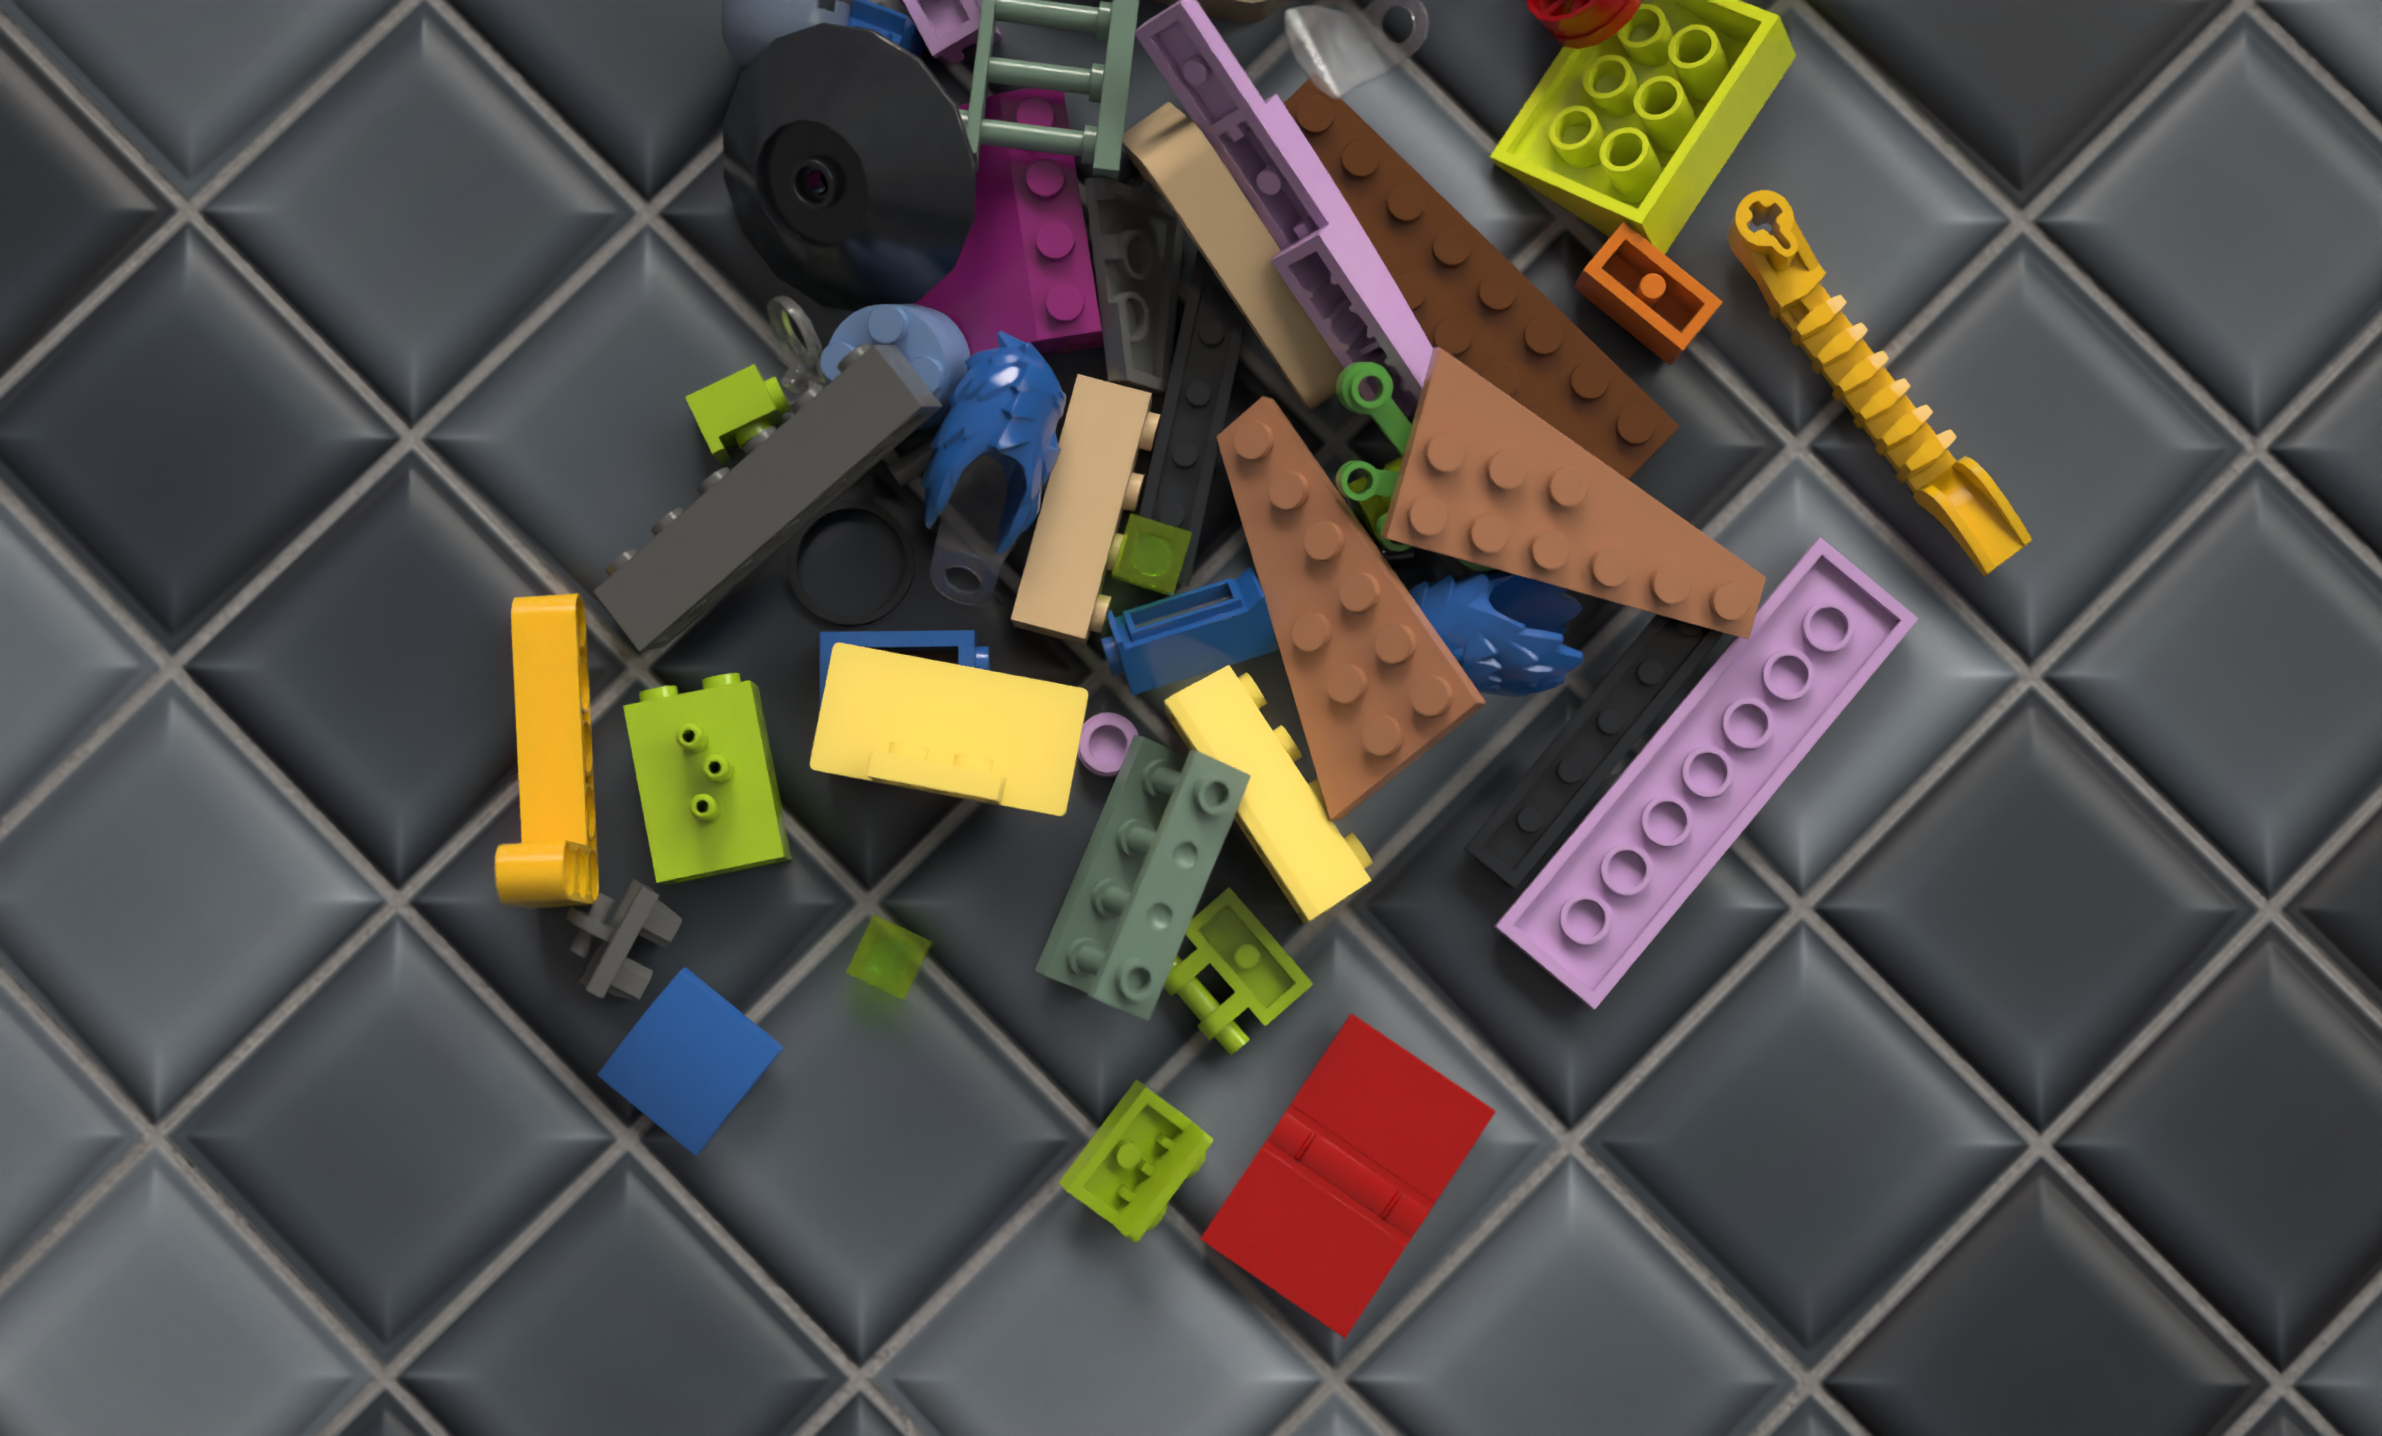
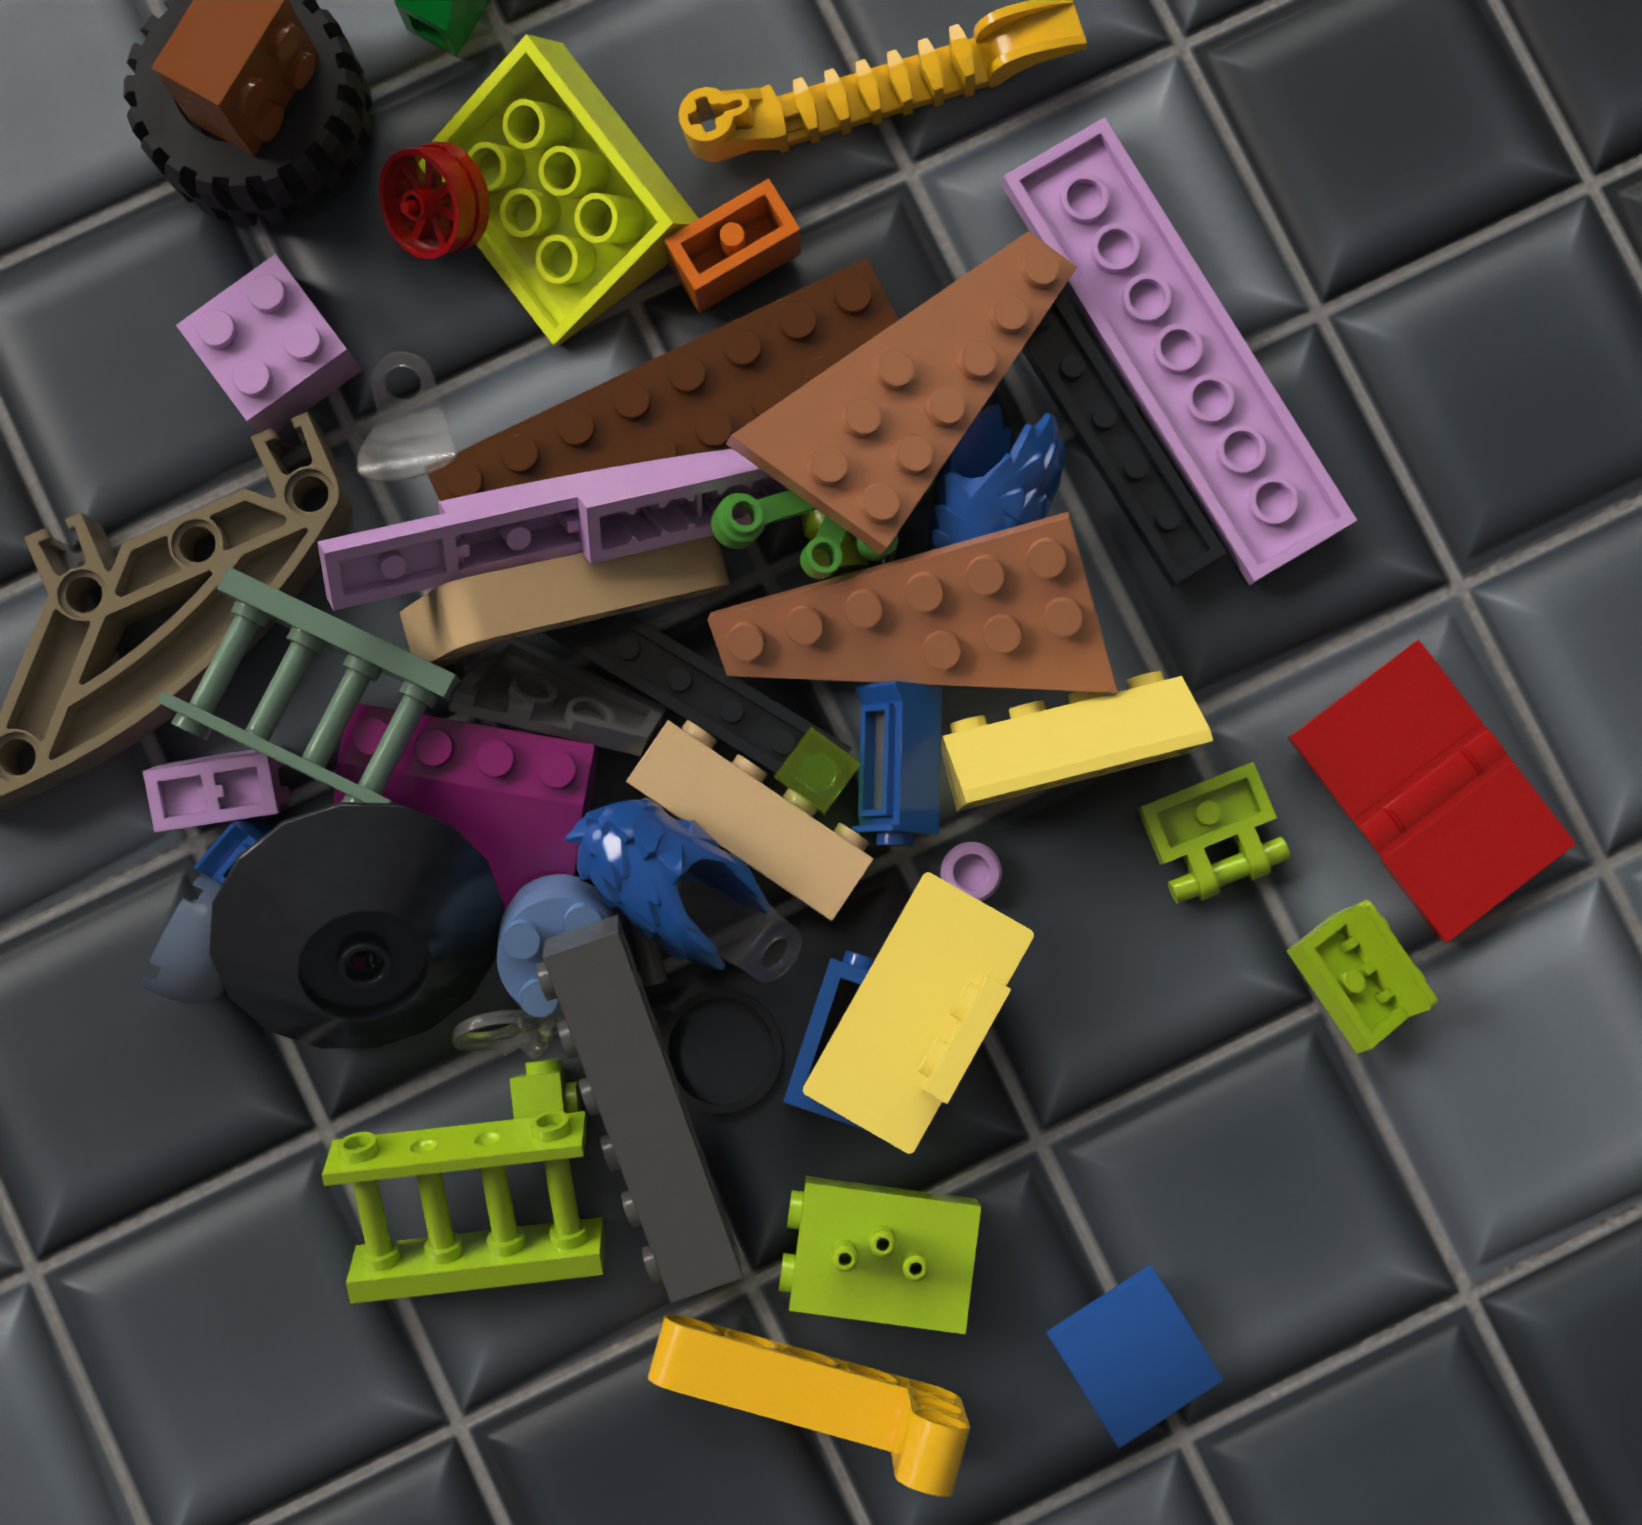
camera: 70 degrees left, 0 degrees up
(571, 392) = (472, 1259): none -> lime fence
(609, 966) = (1022, 1401): dark grey hips -> none
(889, 957) = (1100, 1138): clear neon green plate -> none
(1142, 875) = (1091, 905): sand green fence -> none

